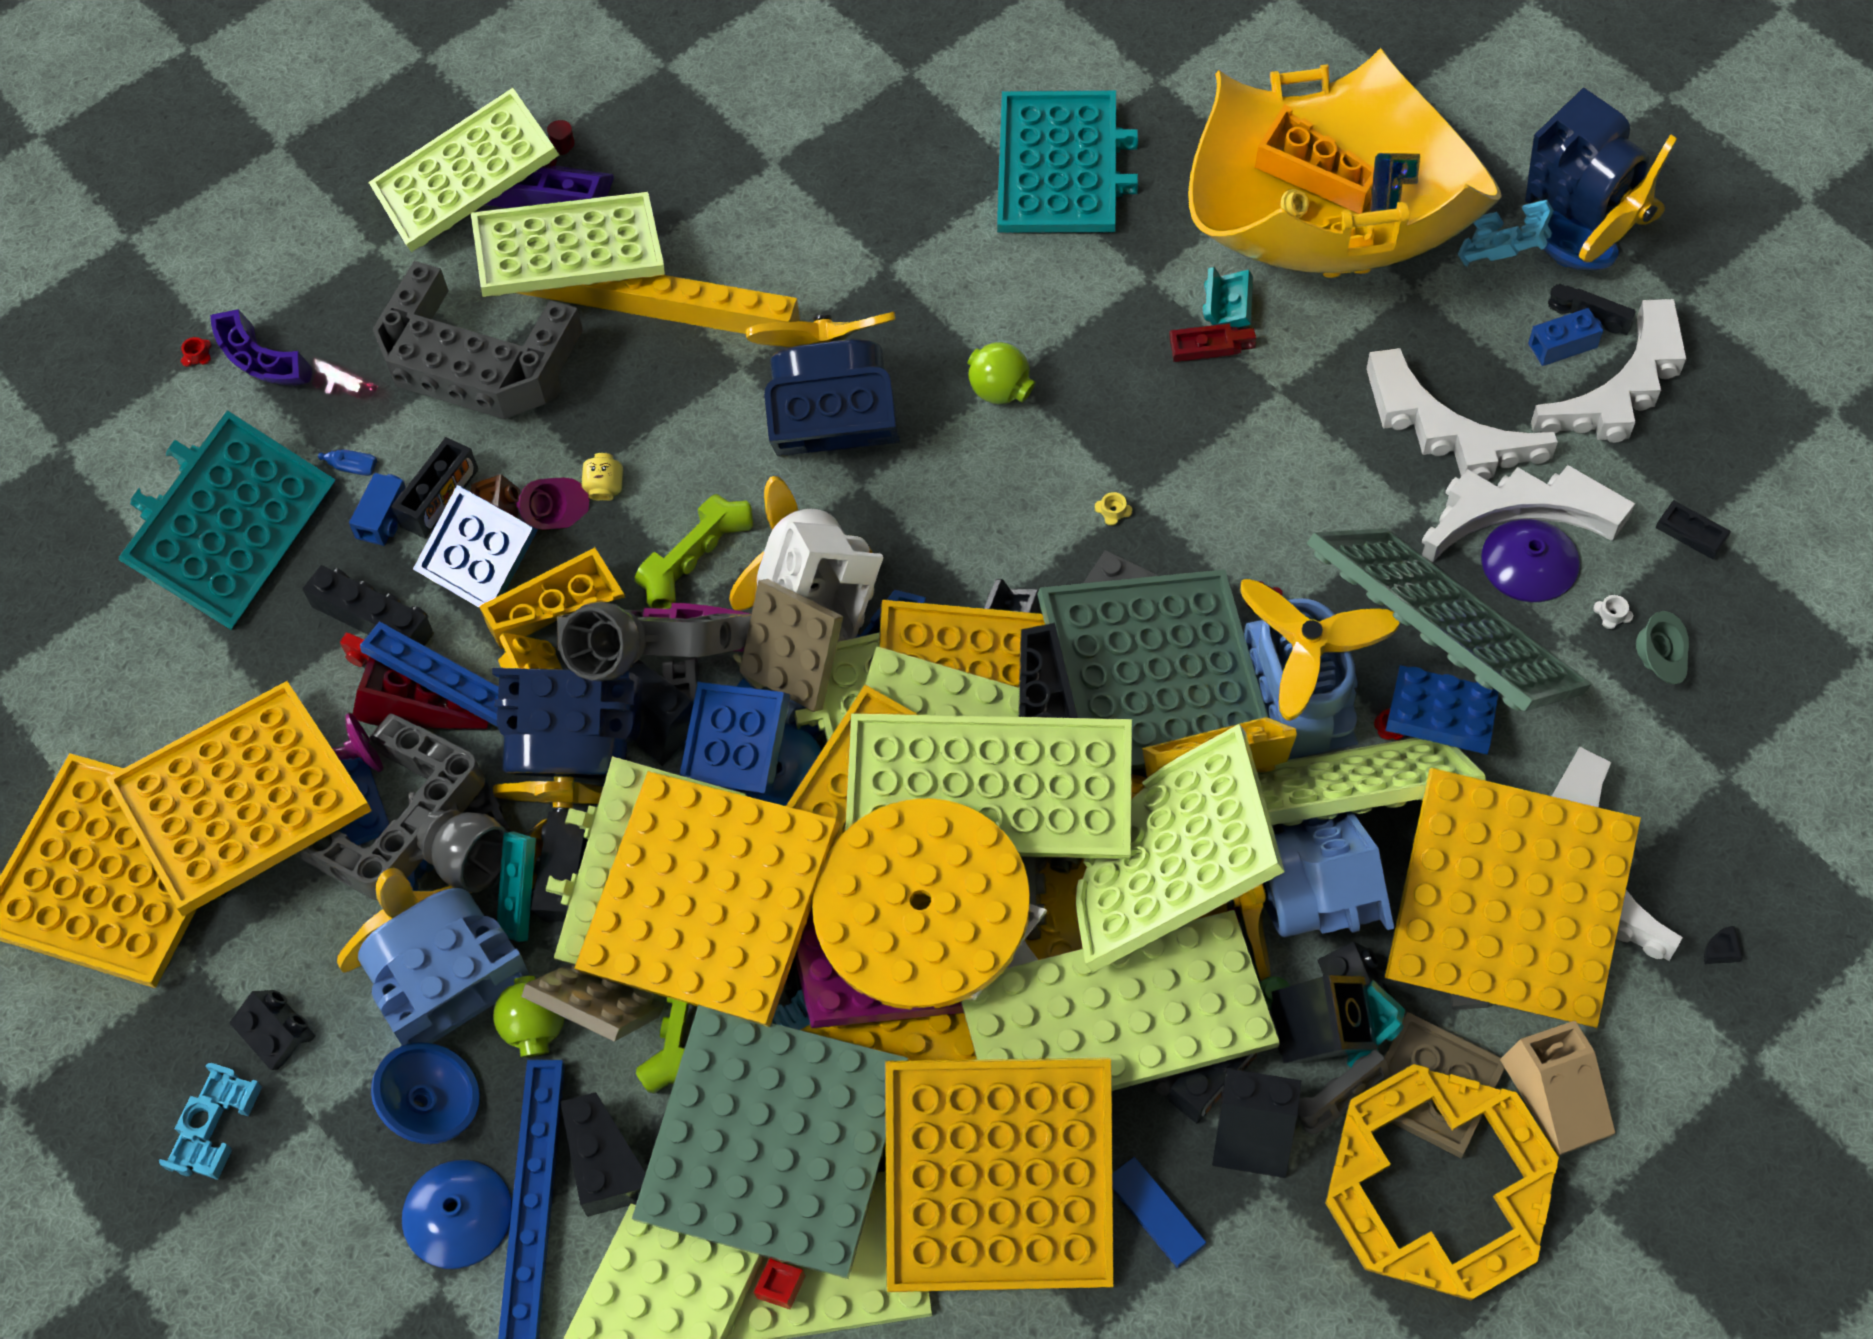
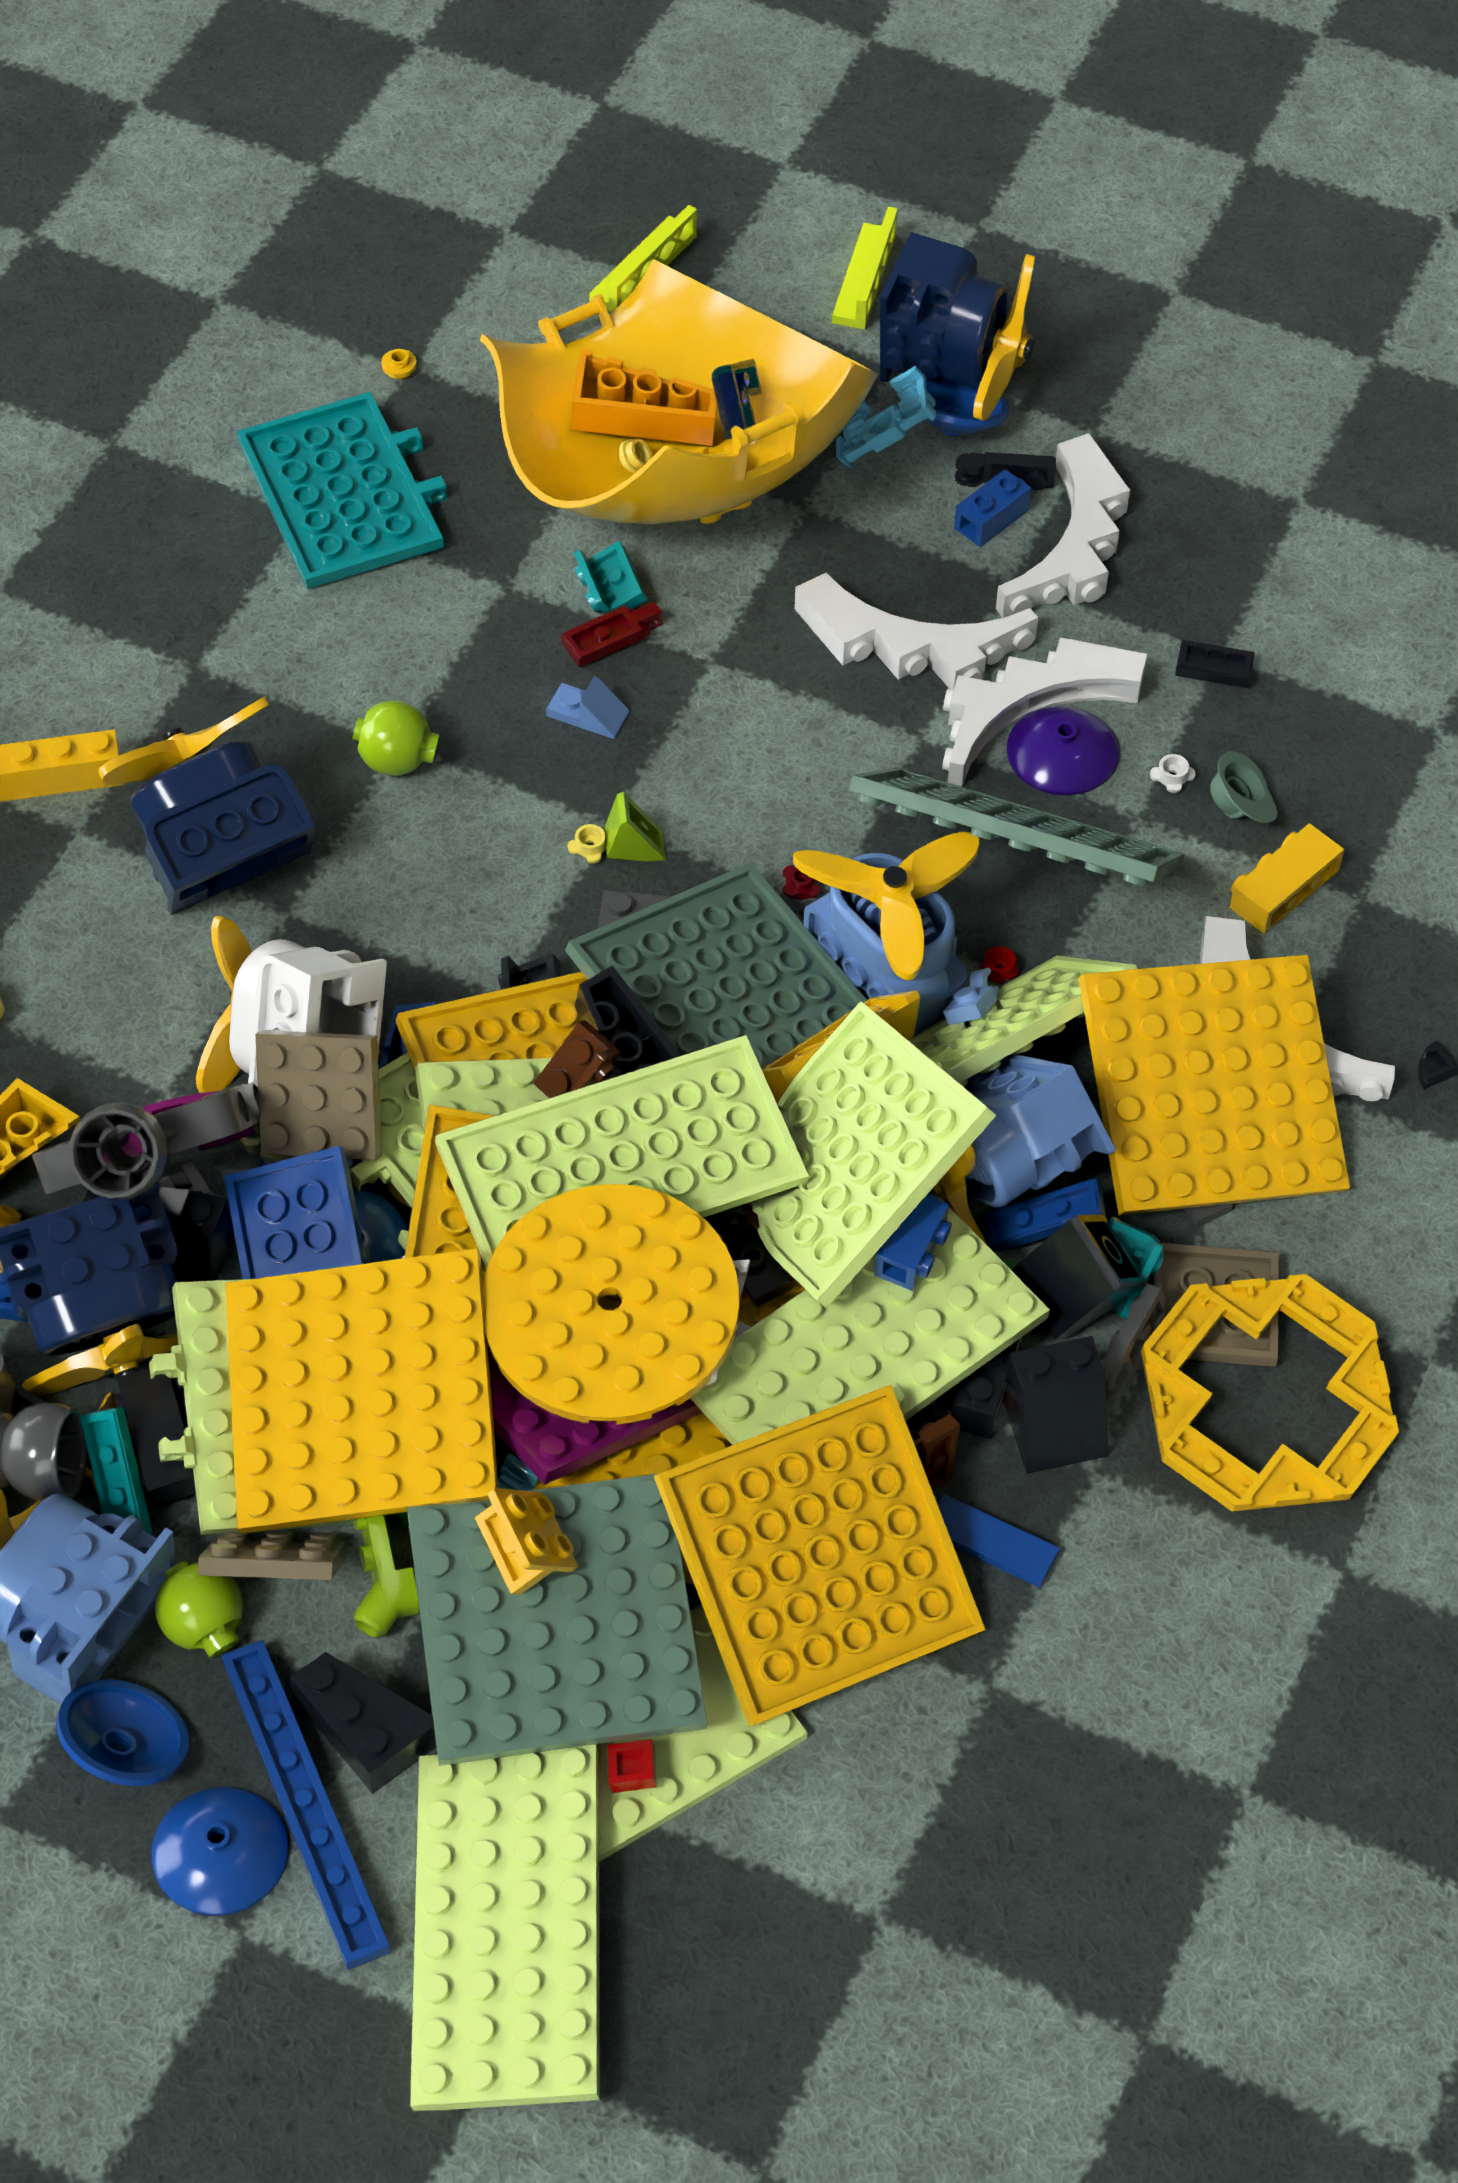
camera: 30 degrees left, 5 degrees down
(716, 517) = (136, 1004): lime plate -> none
(769, 1069) = (524, 1537): none -> yellow bracket
(994, 693) = (579, 1062): none -> reddish brown bracket
(1062, 906) = (765, 1275): none -> black plate
(1134, 1124) = (937, 1449): none -> reddish brown plate
(1149, 512) = (632, 833): none -> lime slope
(1150, 79) = (398, 363): none -> yellow plate
(1164, 398) = (591, 709): none -> medium blue slope
(1182, 949) = (910, 1248): none -> blue brick
(1325, 954) = (1041, 1215): none -> blue tile
(1350, 750) = (972, 1001): none -> light blue plate
(1393, 42) = (662, 245): none -> neon yellow fence
(1442, 709) = (1048, 927): blue plate -> none
(1552, 102) = (865, 272): none -> neon yellow fence
(1561, 1086) = (1344, 1252): tan slope -> none
(1667, 736) = (1285, 877): none -> yellow brick

